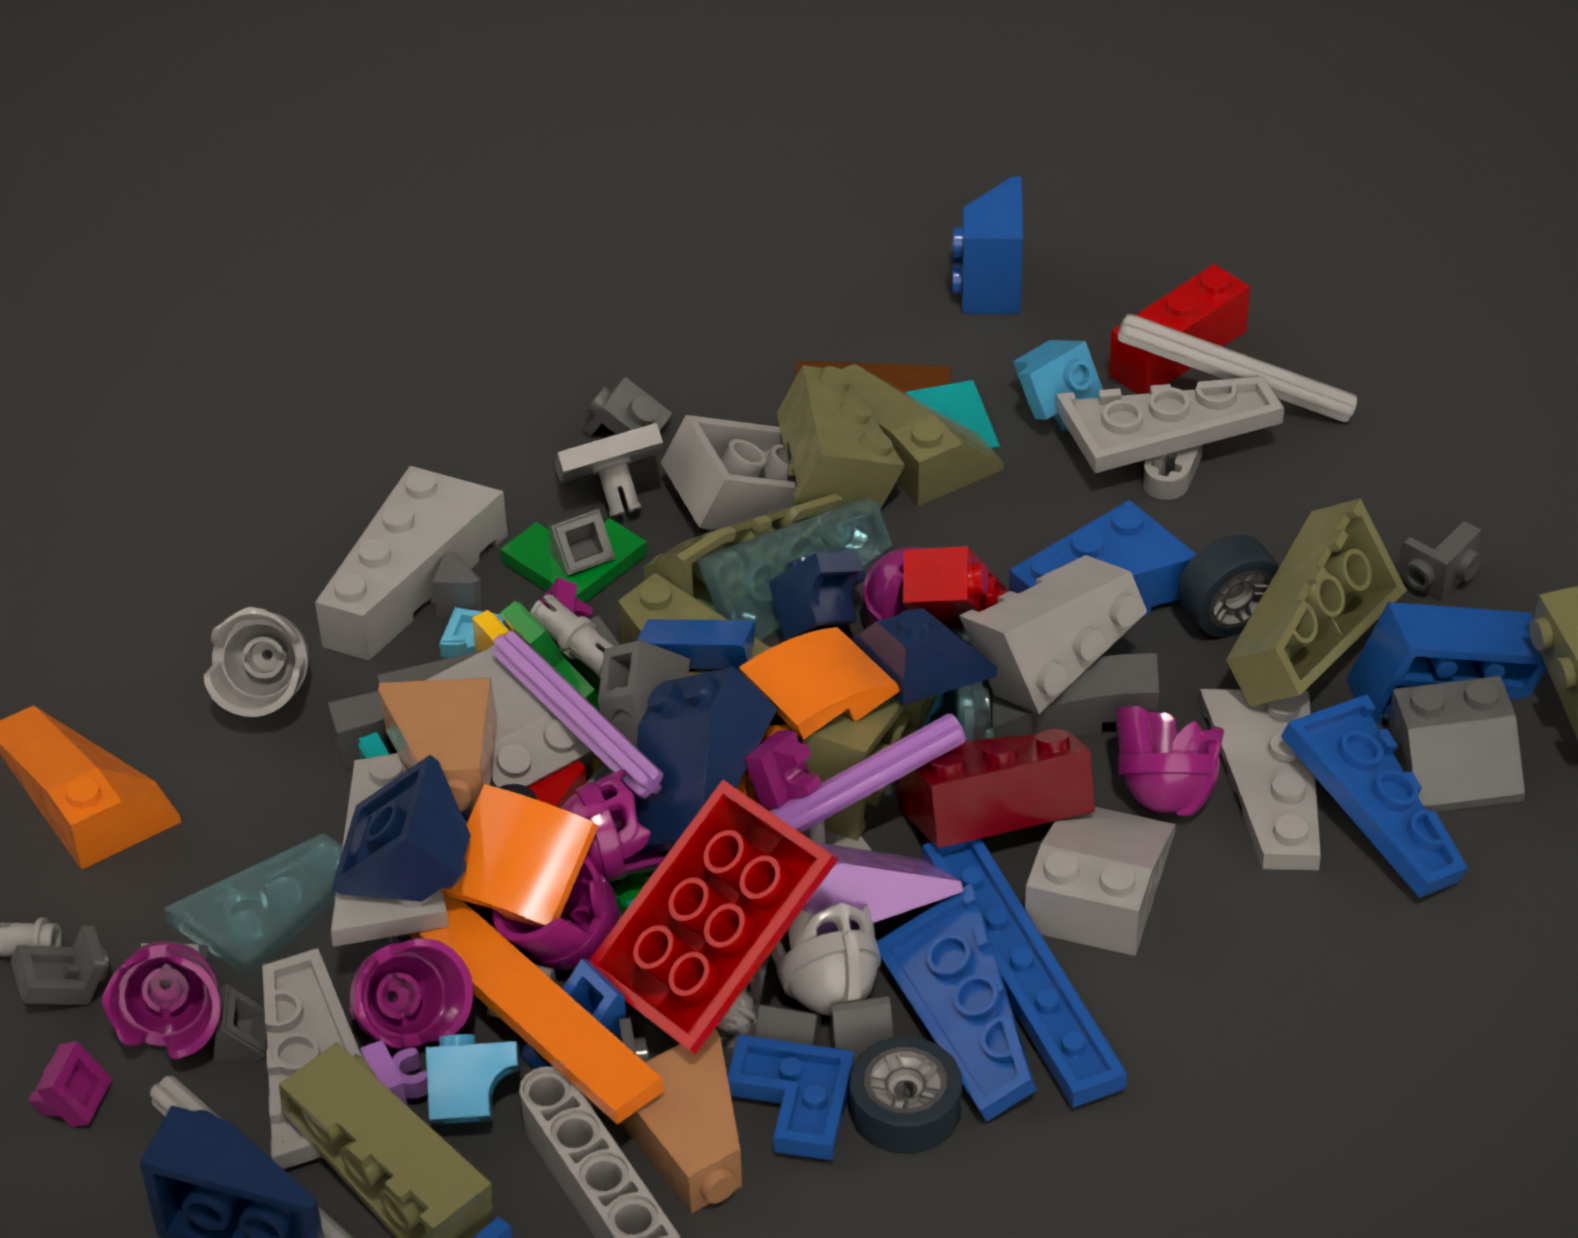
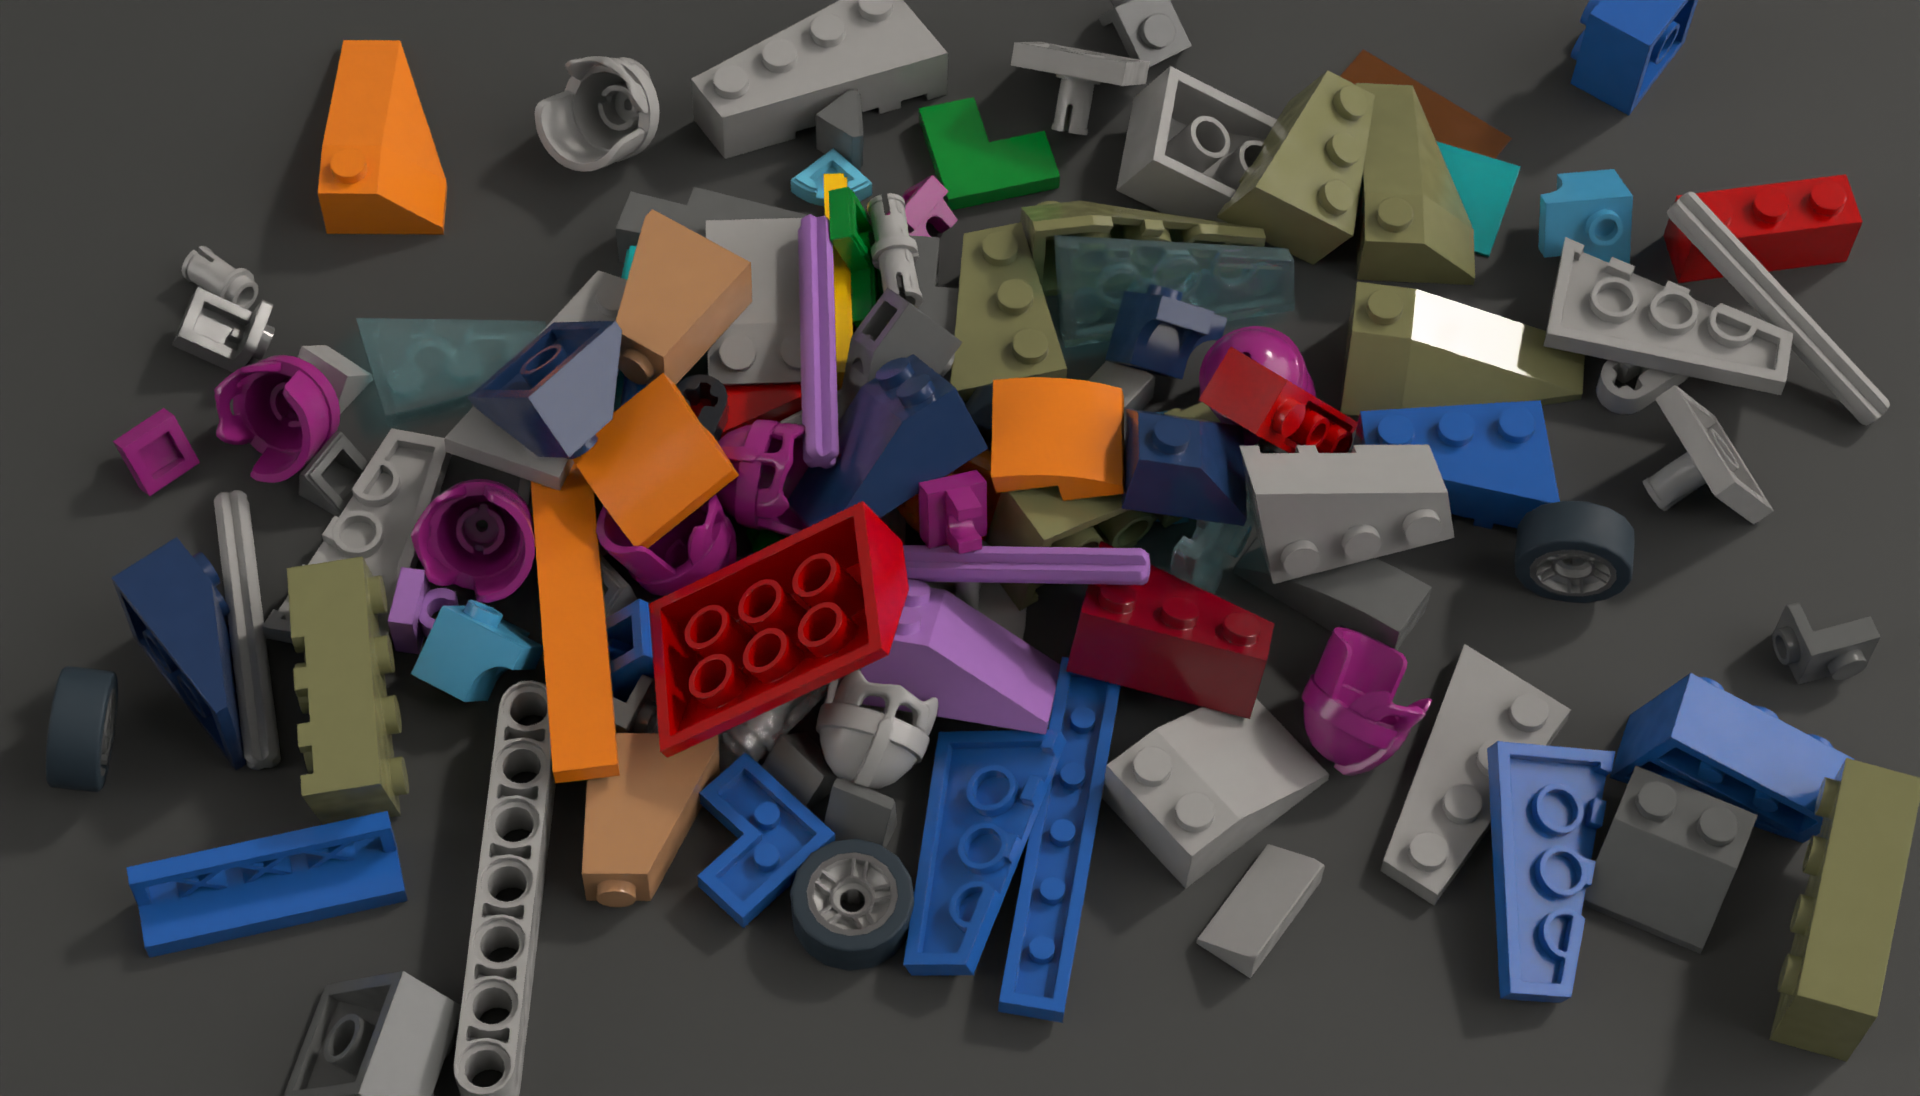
camera: 30 degrees right, 15 degrees up
(580, 542) = (988, 146): dark grey slope -> none
(705, 642) = (991, 324): blue slope -> none
(1024, 512) = (1436, 352): none -> olive wedge
(1204, 933) = (1261, 908): none -> light grey slope
(1270, 482) = (1708, 460): none -> light grey tile
(1316, 604) = (1633, 628): olive wedge -> none

